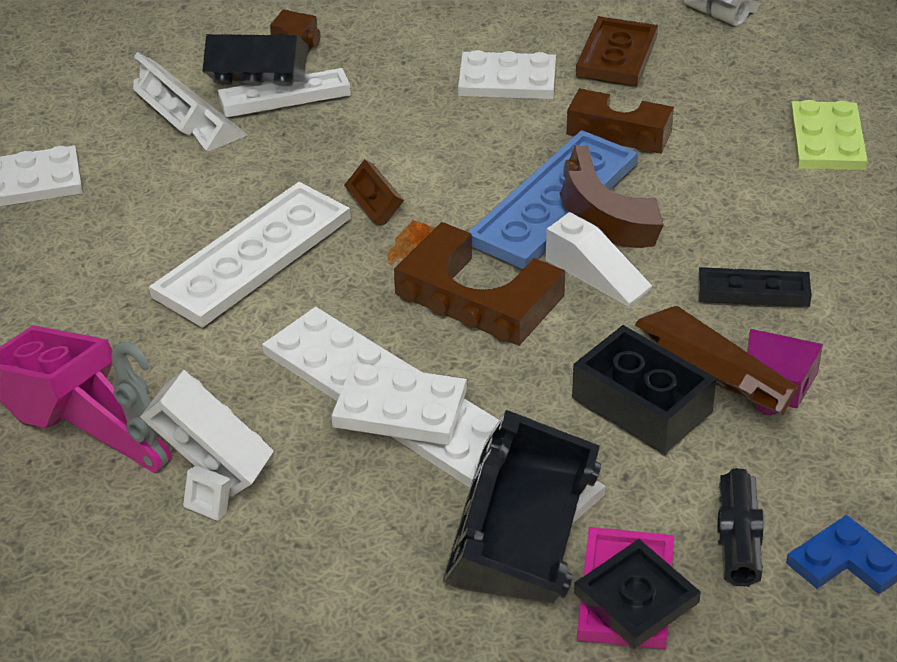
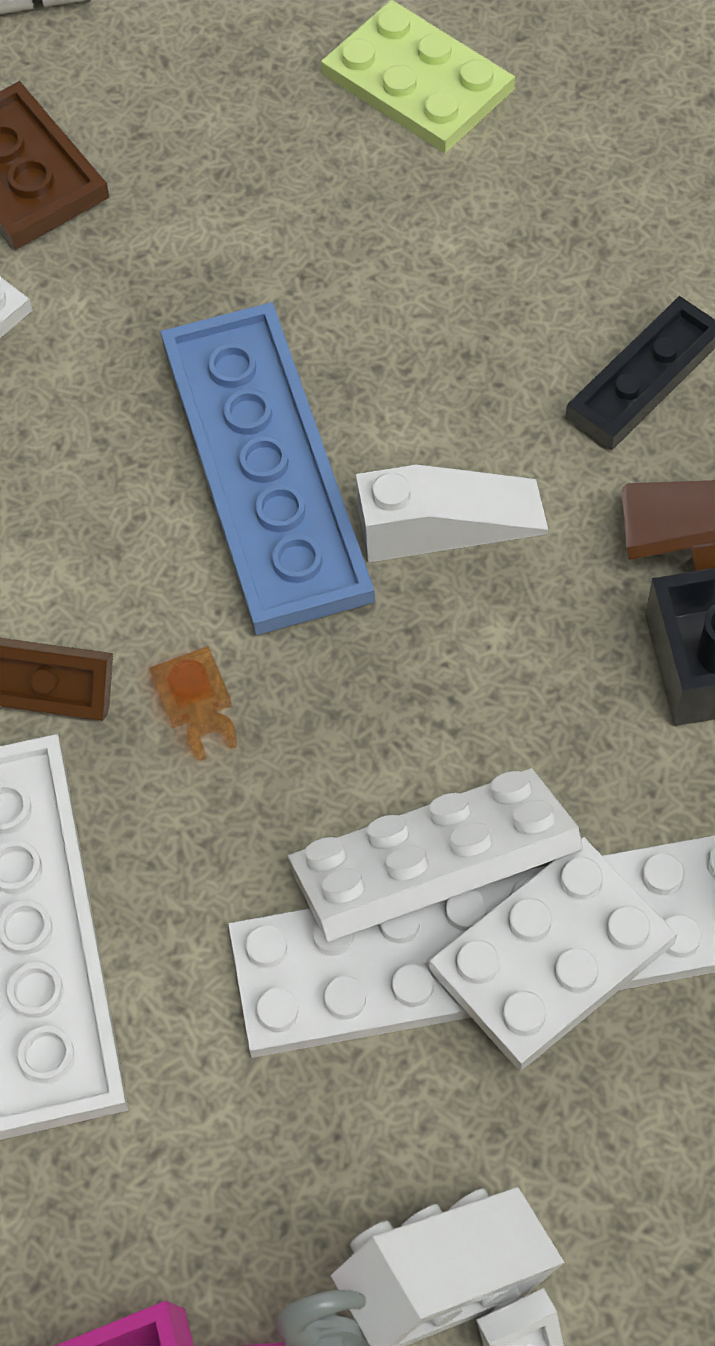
camera: 50 degrees left, 20 degrees up
(406, 339) = (433, 853): none -> white plate
(504, 312) = (311, 740): reddish brown arch -> none
(620, 218) = (356, 432): reddish brown arch -> none
(641, 129) = (143, 299): reddish brown arch -> none

